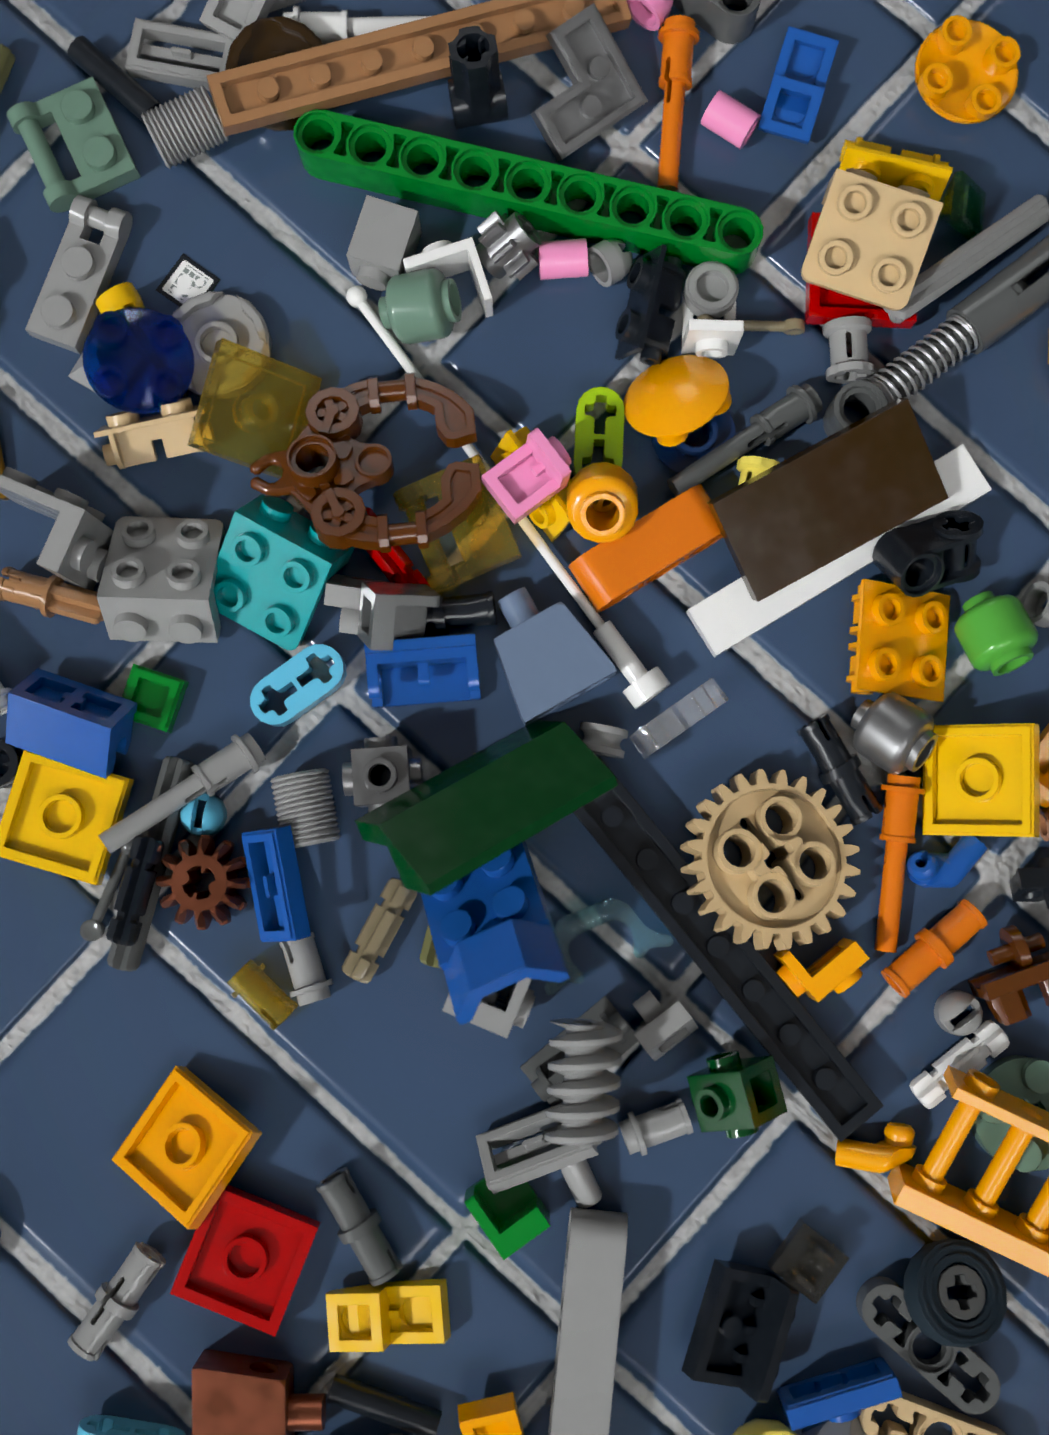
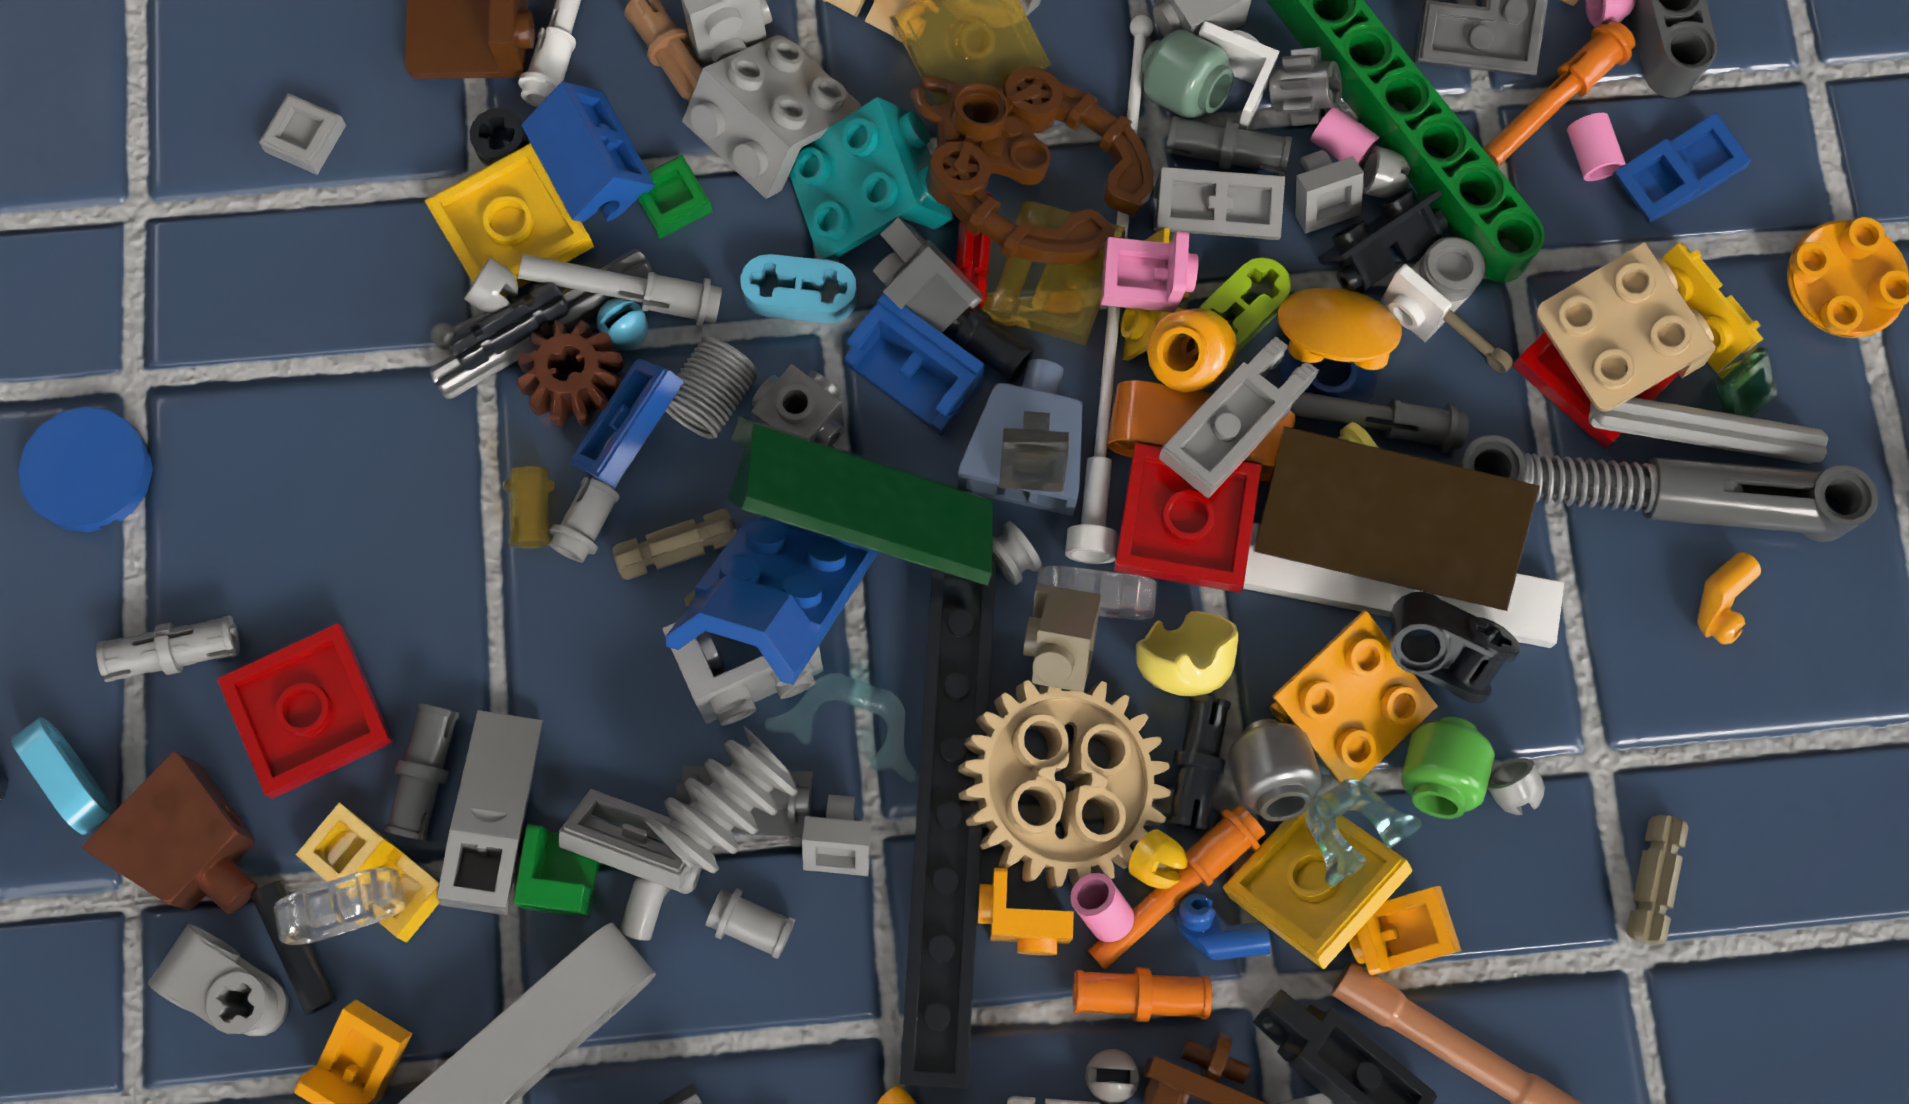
camera: 40 degrees right, 10 degrees down
(95, 876) = (488, 284): none -> light grey hinge
(186, 1147) = (347, 573): light orange plate -> none
(393, 1362) = (339, 906): none -> clear beam
(431, 1214) = (490, 814): none -> light grey slope
(492, 331) = (1228, 145): none -> dark grey pin
(526, 382) = (1219, 203): none -> light grey hinge
(569, 670) = (1034, 455): none -> clear smoke tile
(585, 307) = (1327, 191): none -> light grey tile
(675, 528) = (1234, 420): none -> light grey hinge
(690, 771) = (1062, 636): none -> dark tan brick
(696, 617) = (1180, 533): none -> red plate
(736, 1094) = (846, 952): dark green brick -> none
(776, 706) = (1191, 658): none -> light yellow hair
(851, 921) = (1102, 907): none -> bright pink hinge
(852, 331) = (1530, 415): light grey bush -> none
(874, 857) = (1156, 860): none -> yellow hinge
(956, 743) = (1353, 795): none -> clear light blue helmet

